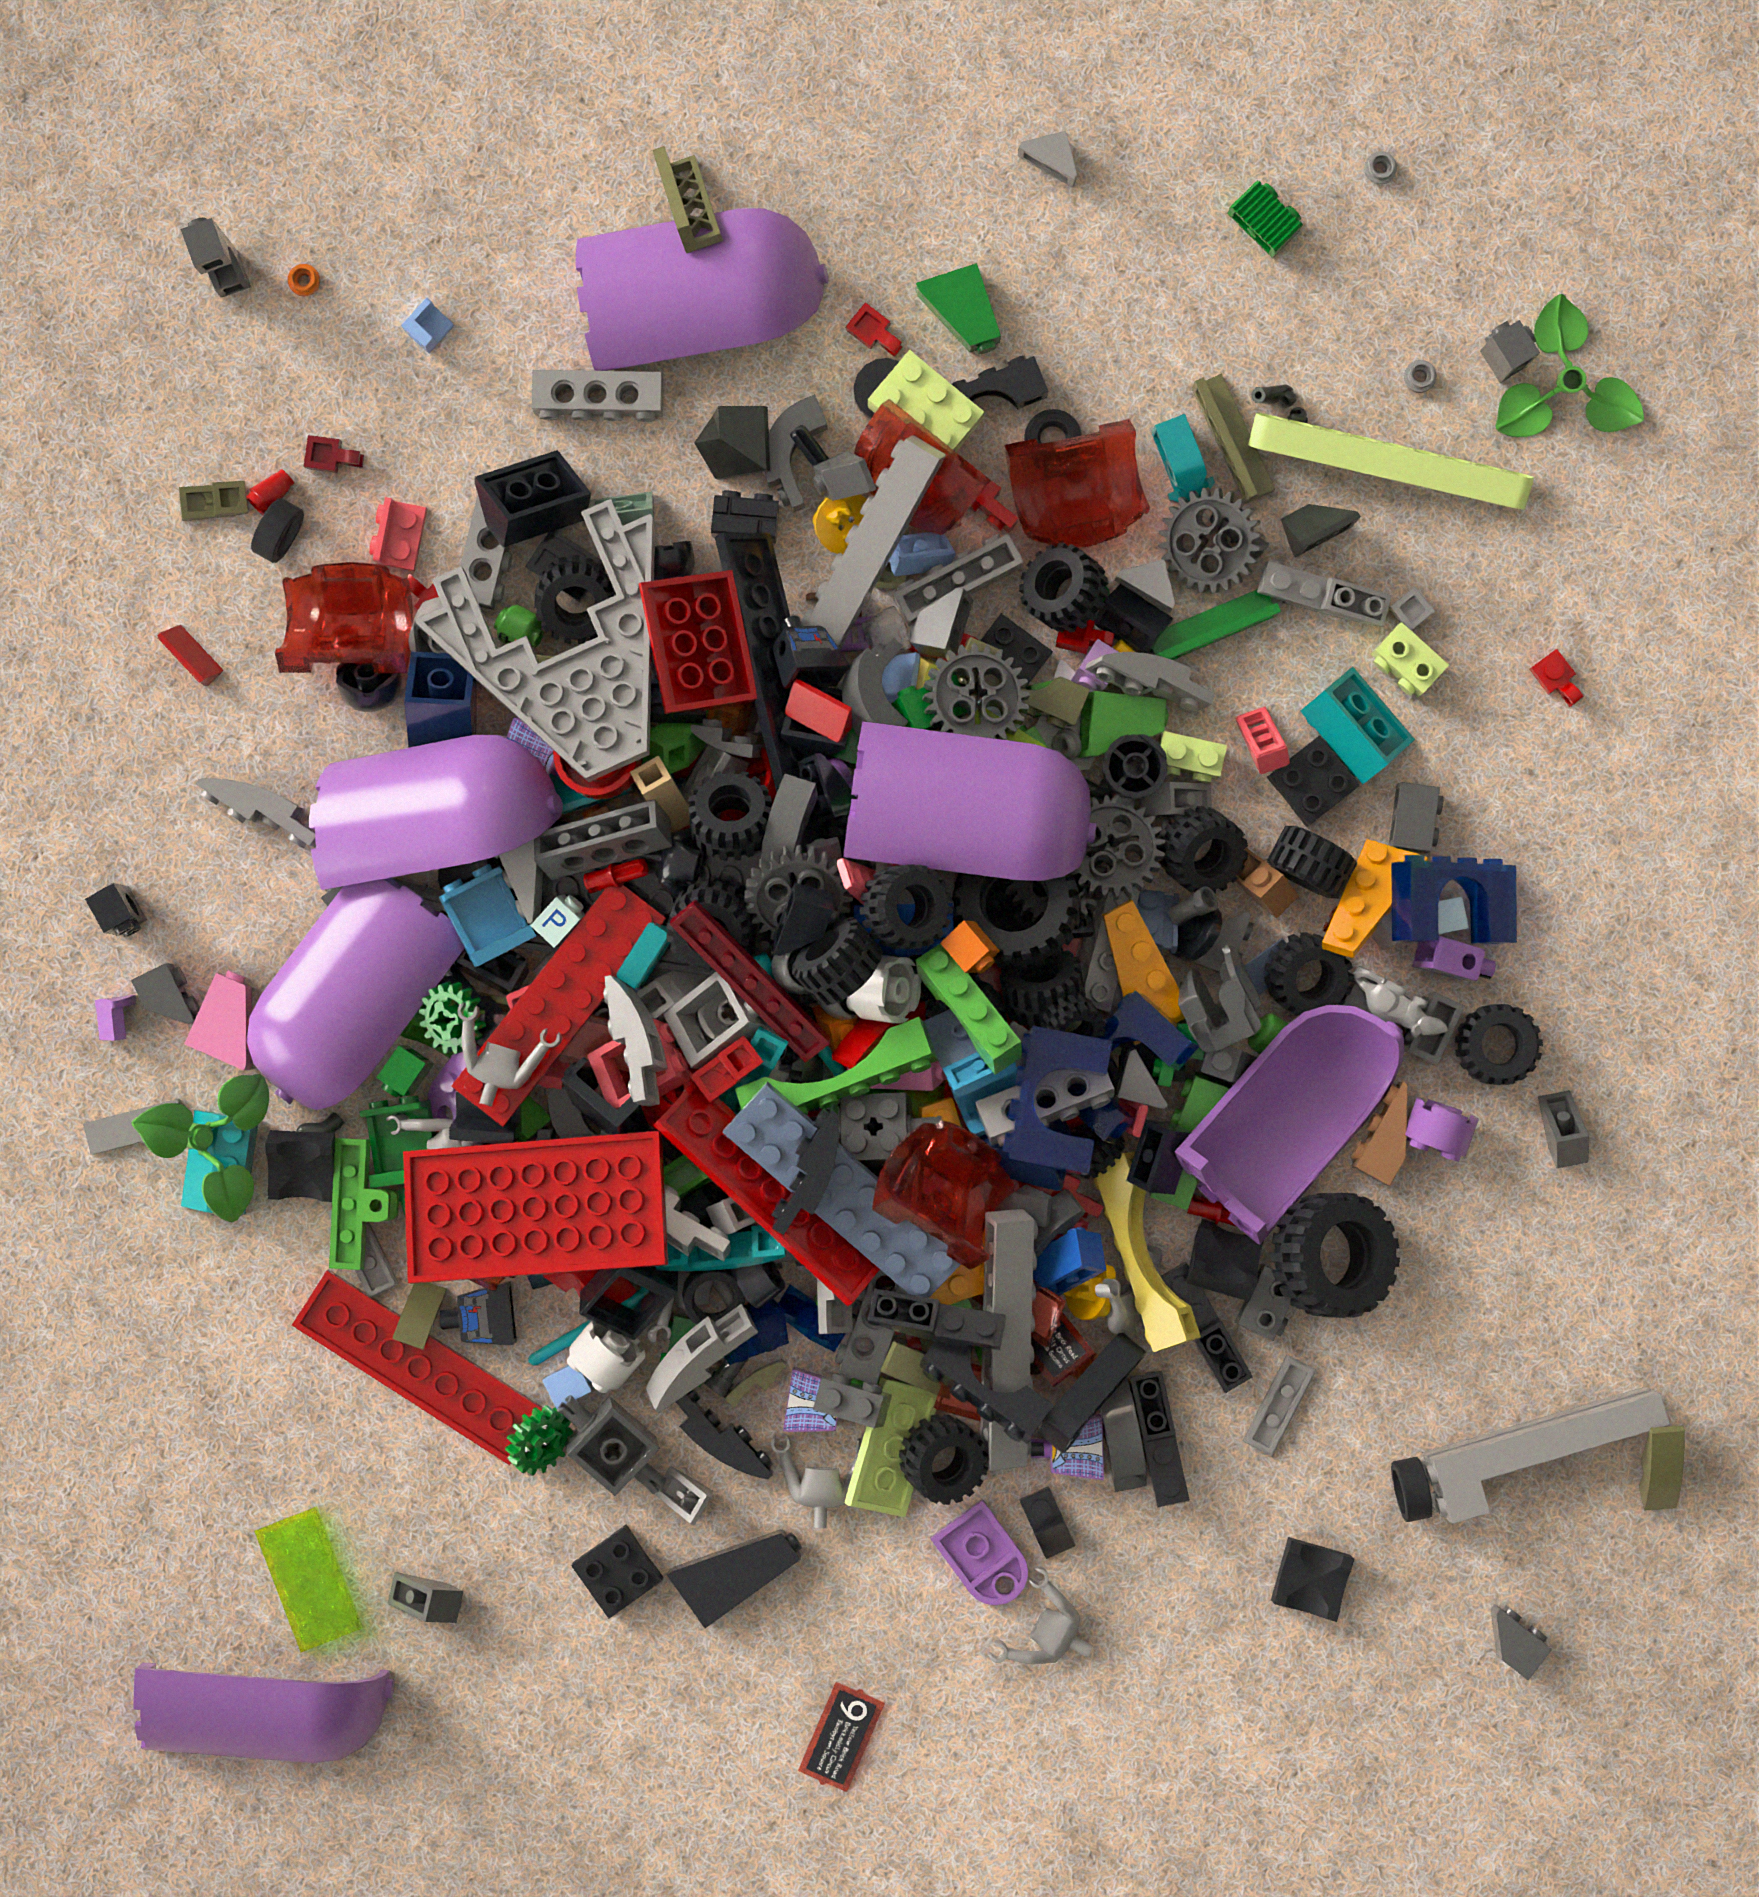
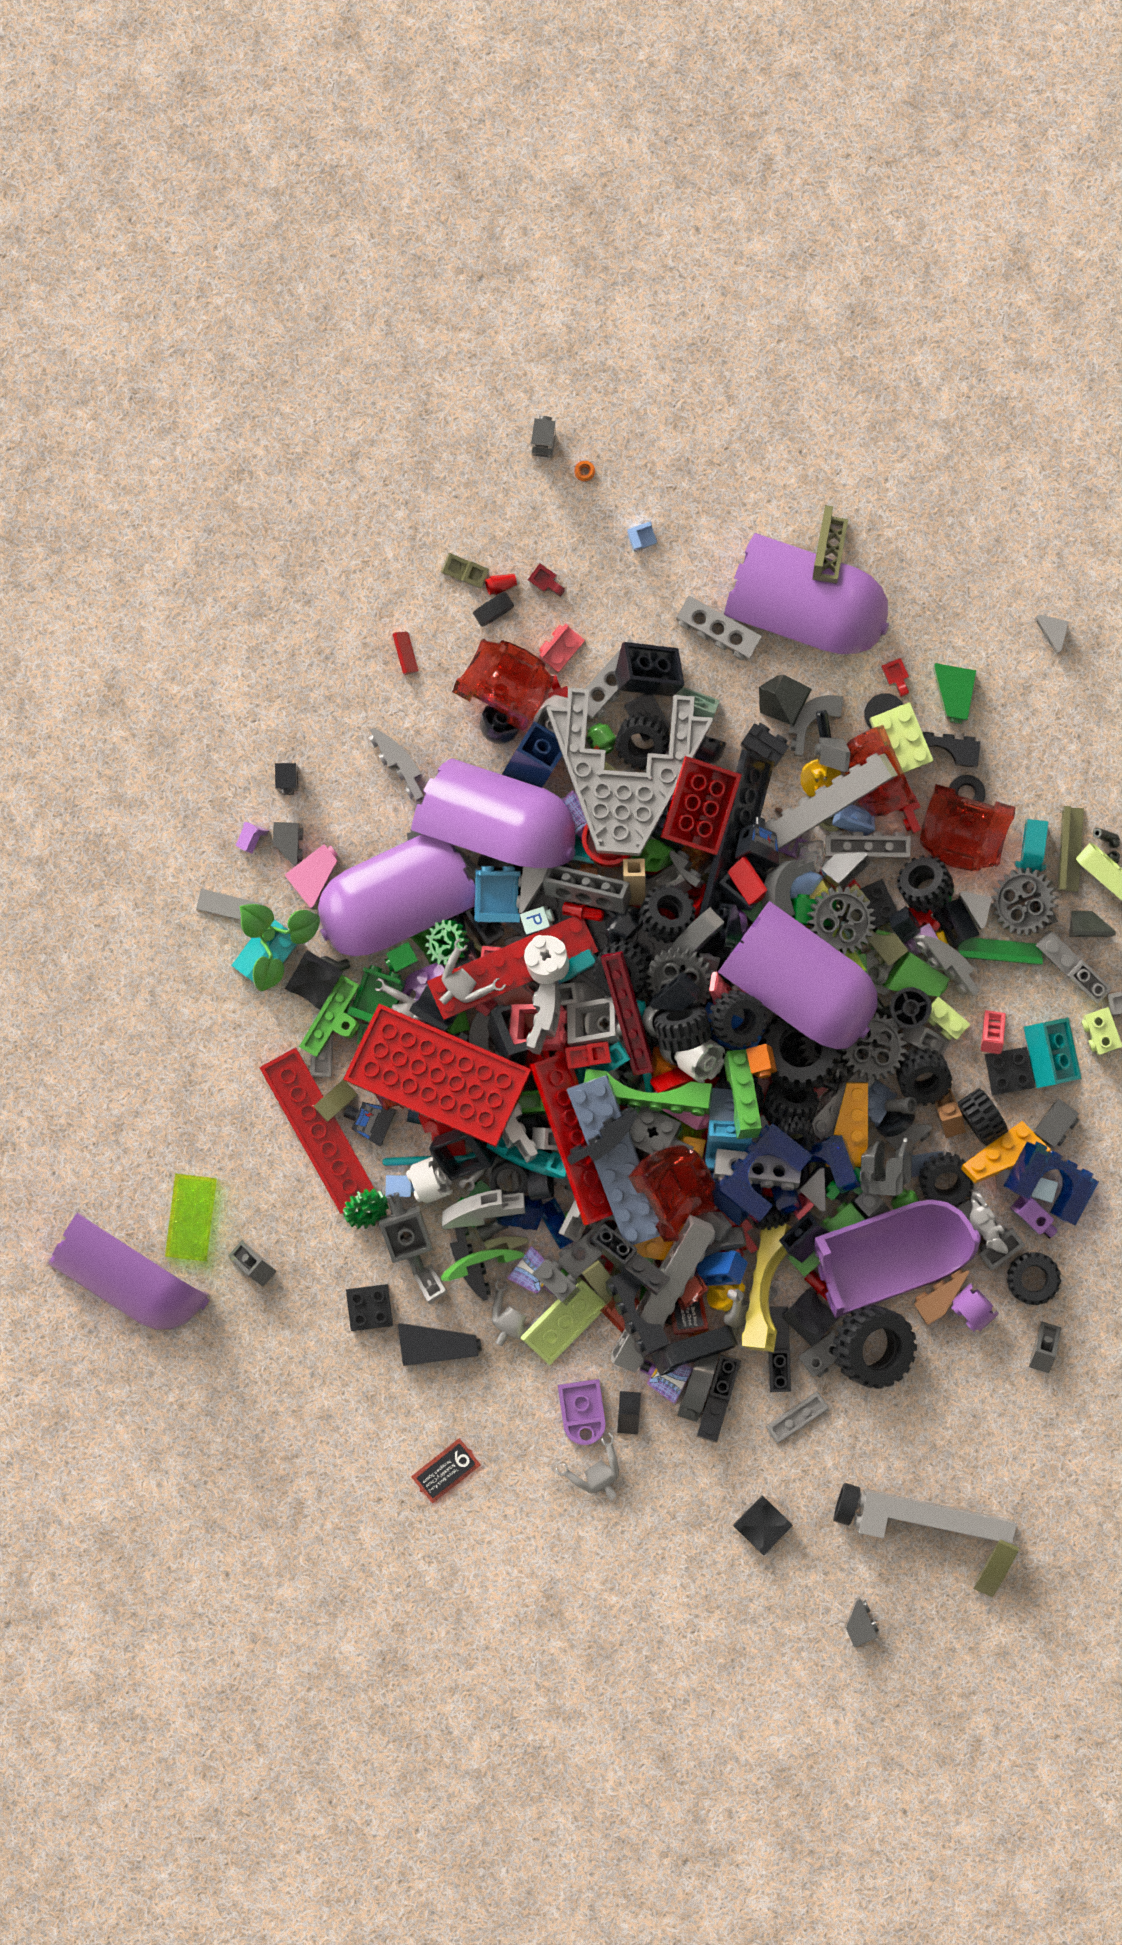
camera: 30 degrees right, 0 degrees up
(598, 967) = (556, 957): none -> white brick
(708, 1457) = (459, 1268): none -> bright green slope
(962, 1472) = (579, 1332): black tyre -> none
(1065, 657) = (904, 924): none -> black brick

